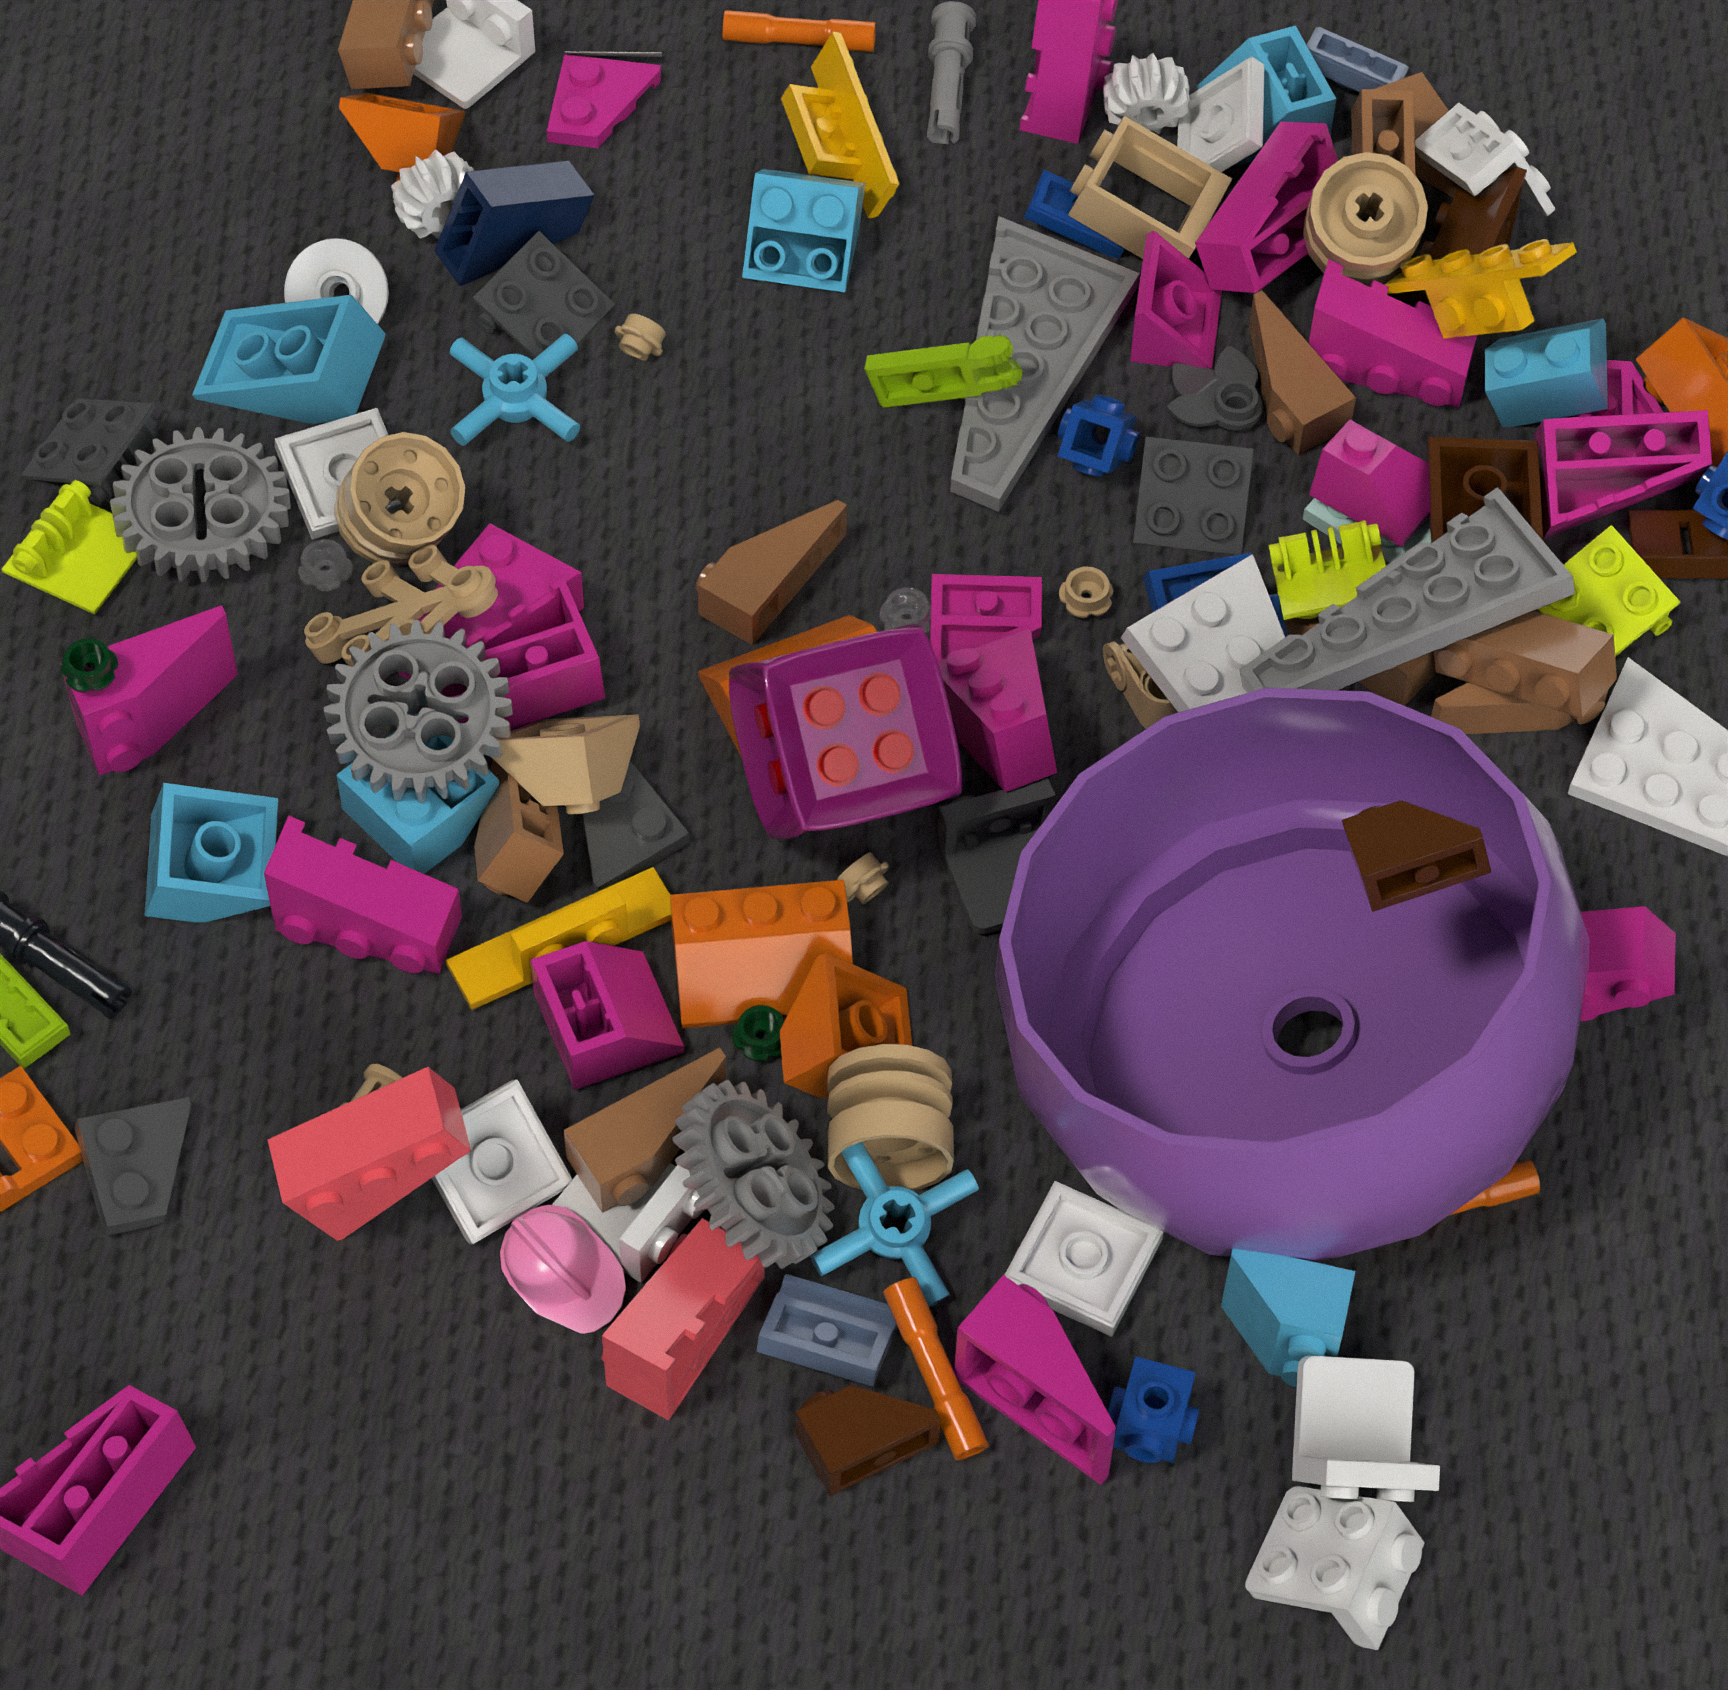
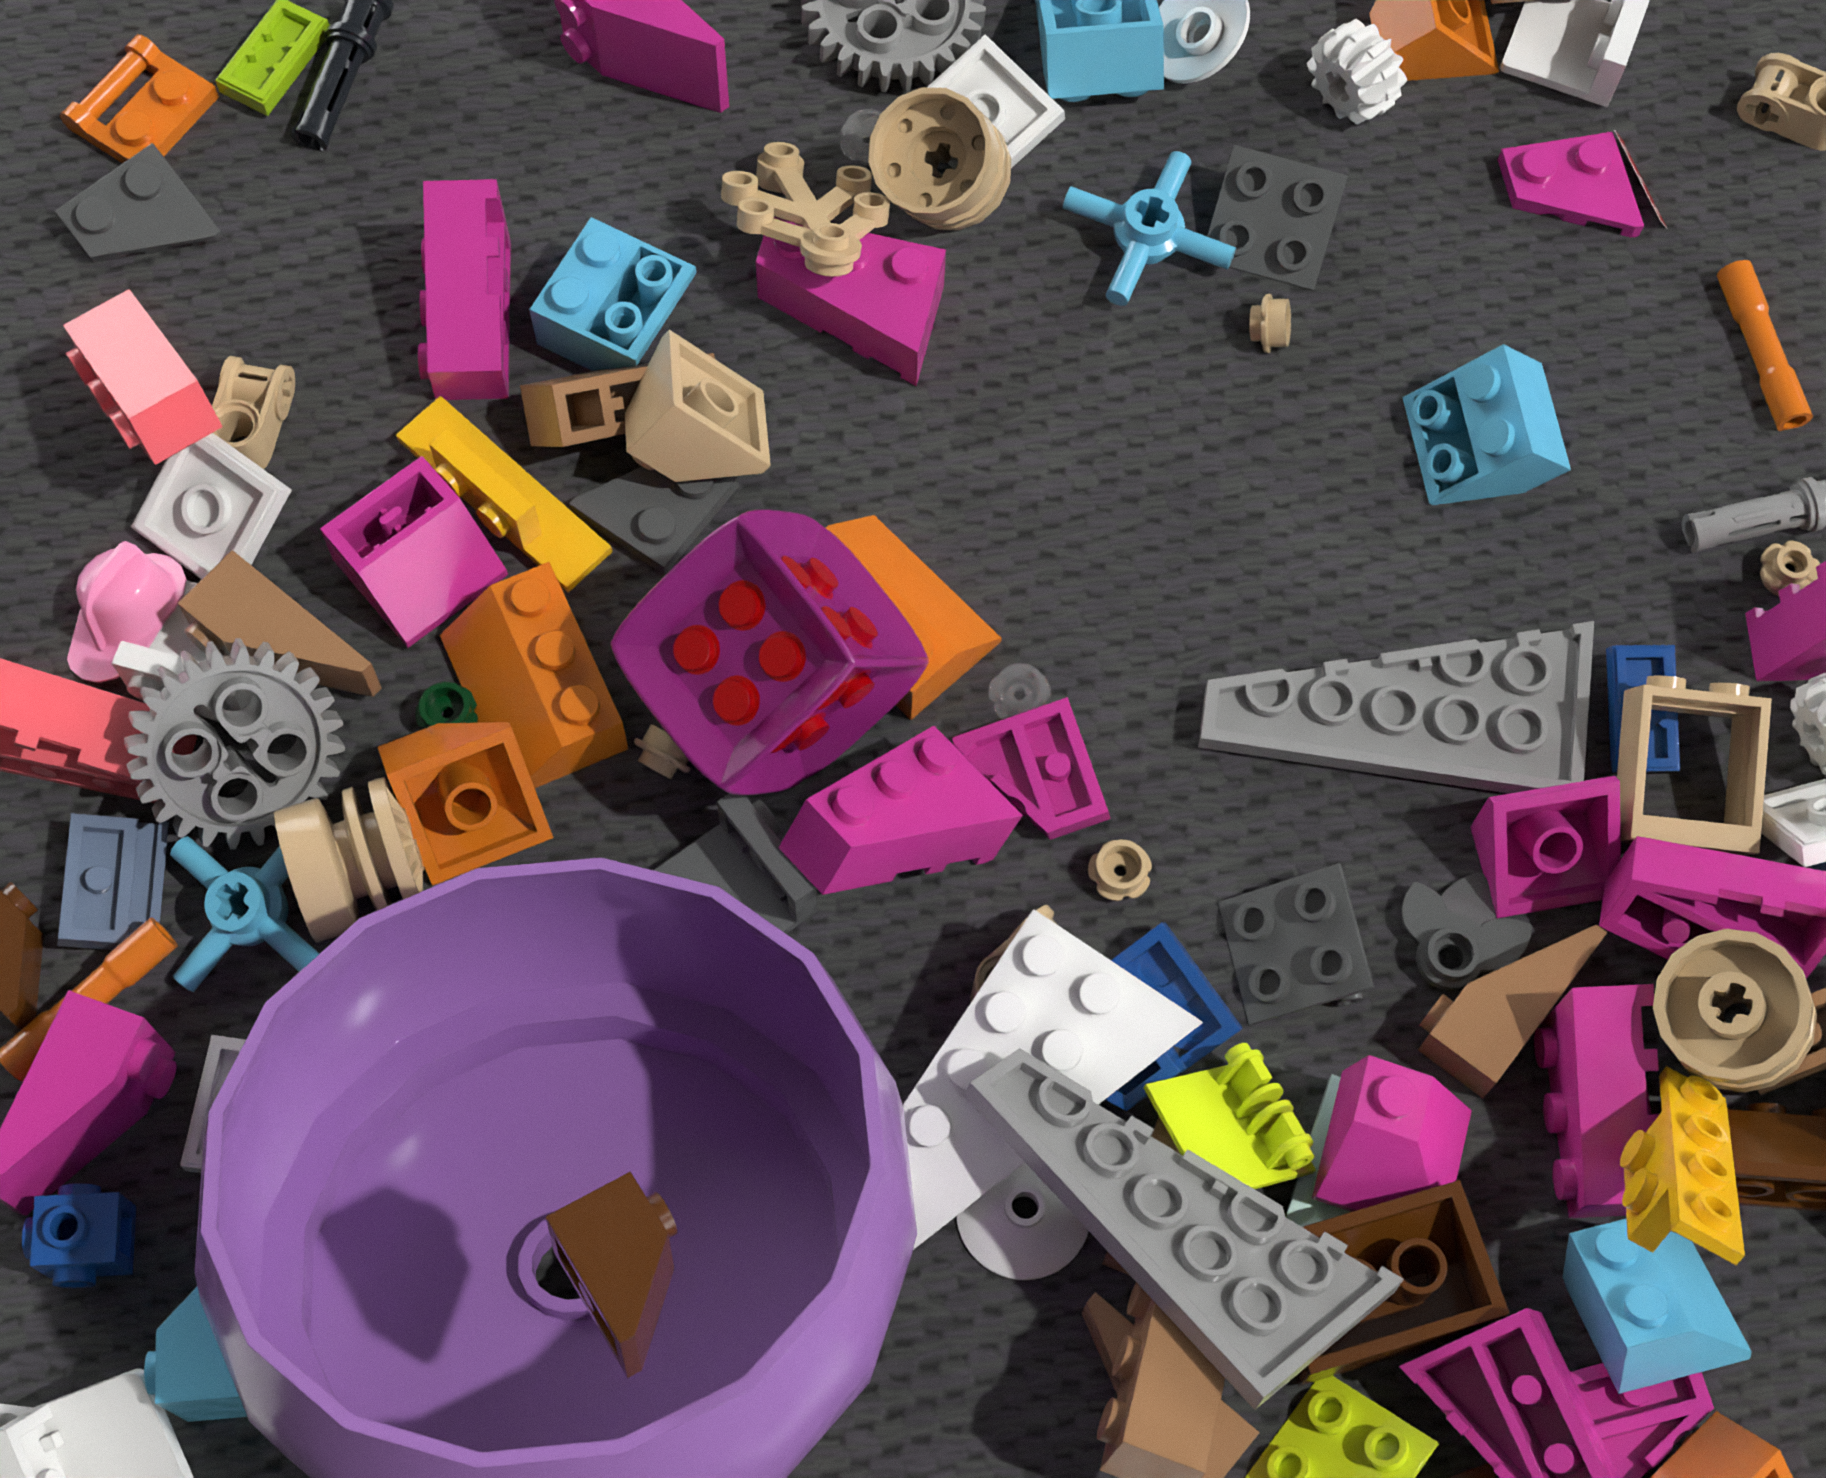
camera: 70 degrees right, 10 degrees up
(208, 853) = (480, 135): medium azure slope -> none
(404, 756) = (606, 261): light grey gear -> none
(504, 210) = (1370, 140): dark blue slope -> none
(544, 658) = (785, 340): dark pink wedge -> none
(766, 571) = (1008, 535): medium nougat slope -> none
(838, 127) = (1636, 417): yellow bracket -> none
(943, 372) = (1338, 626): lime hinge -> none
(997, 95) = (1777, 576): none -> tan plate
(1080, 438) = (1325, 814): blue brick -> none

